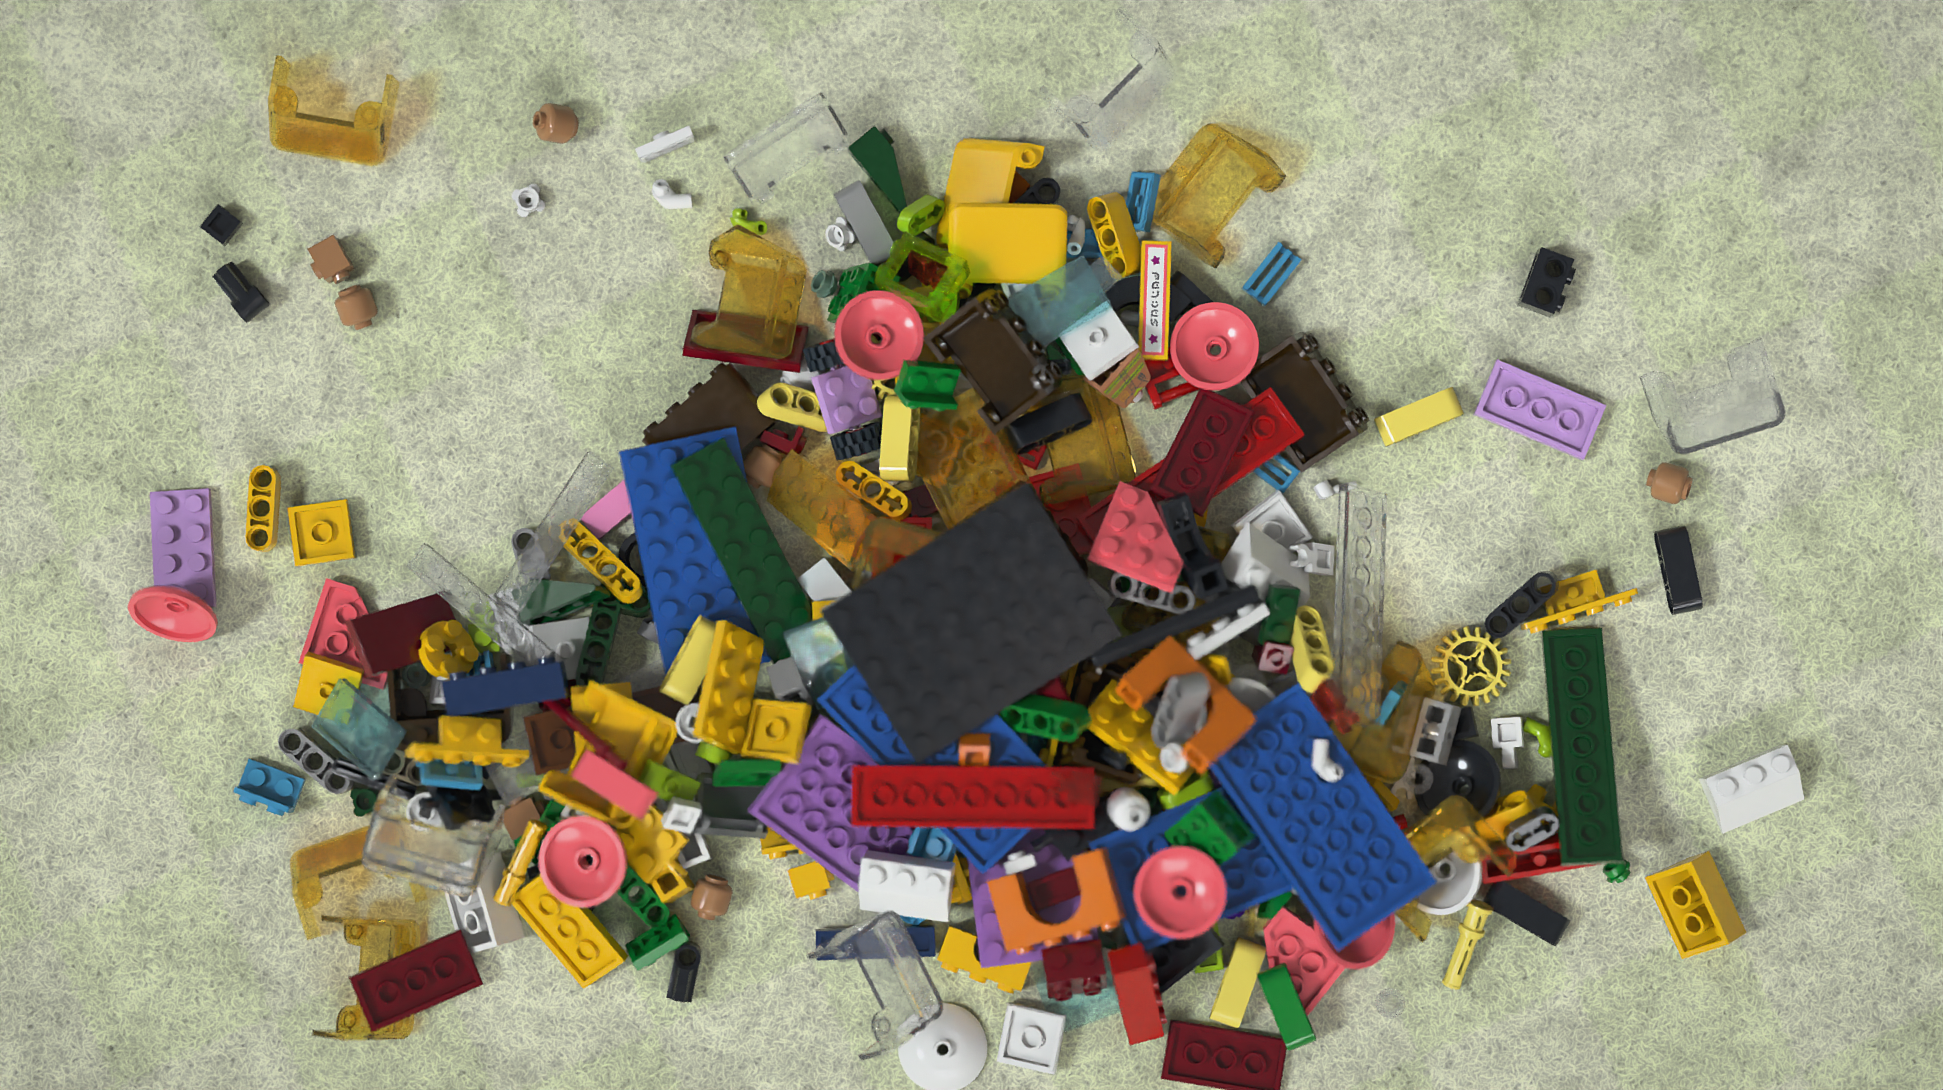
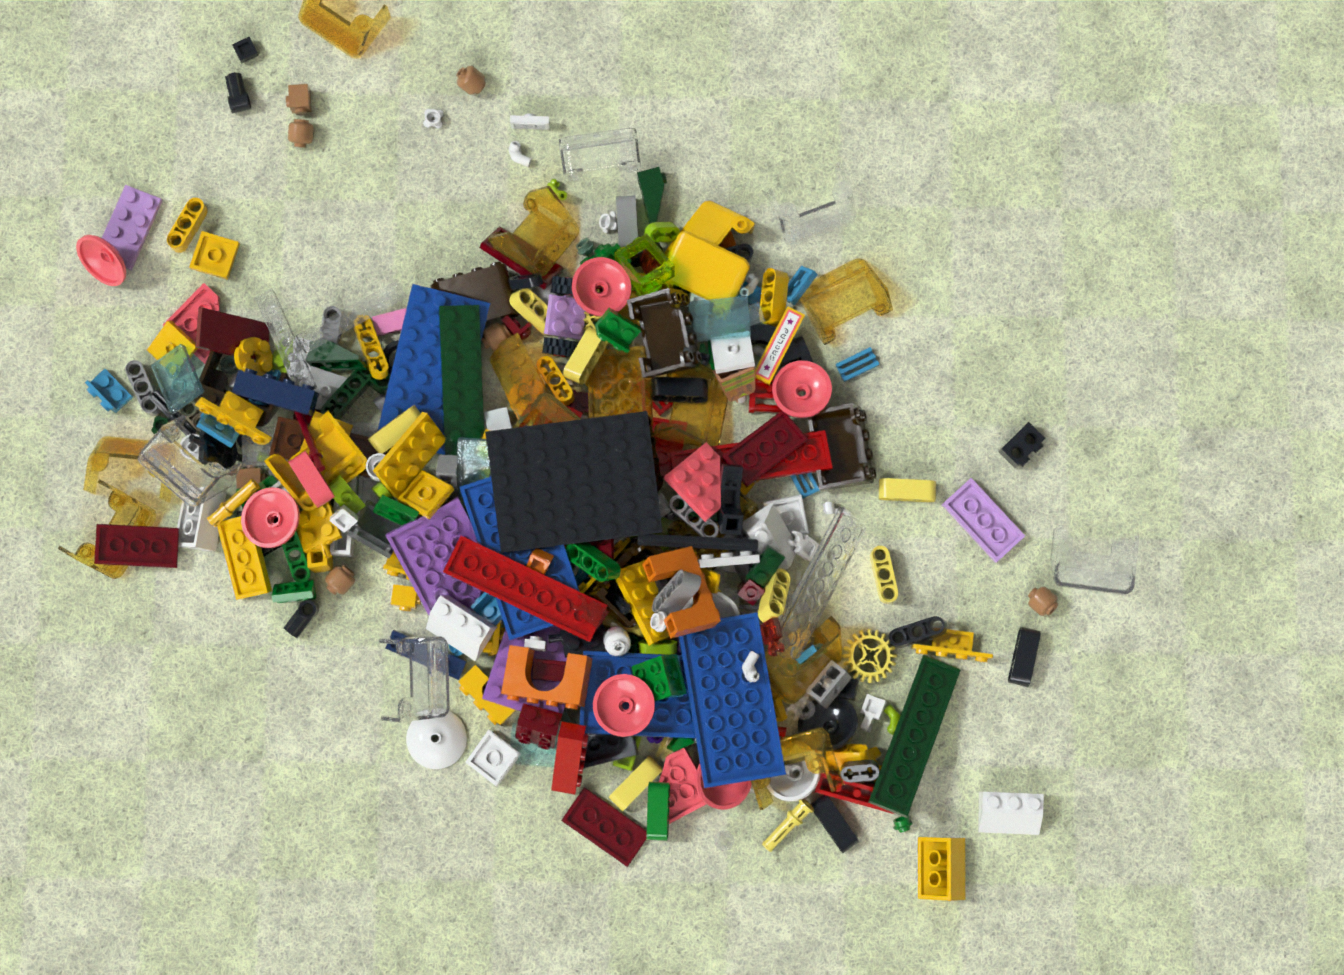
camera: 20 degrees right, 5 degrees down
(770, 374) = (525, 281): none -> black beam
(1453, 553) = (881, 584): none -> light yellow beam

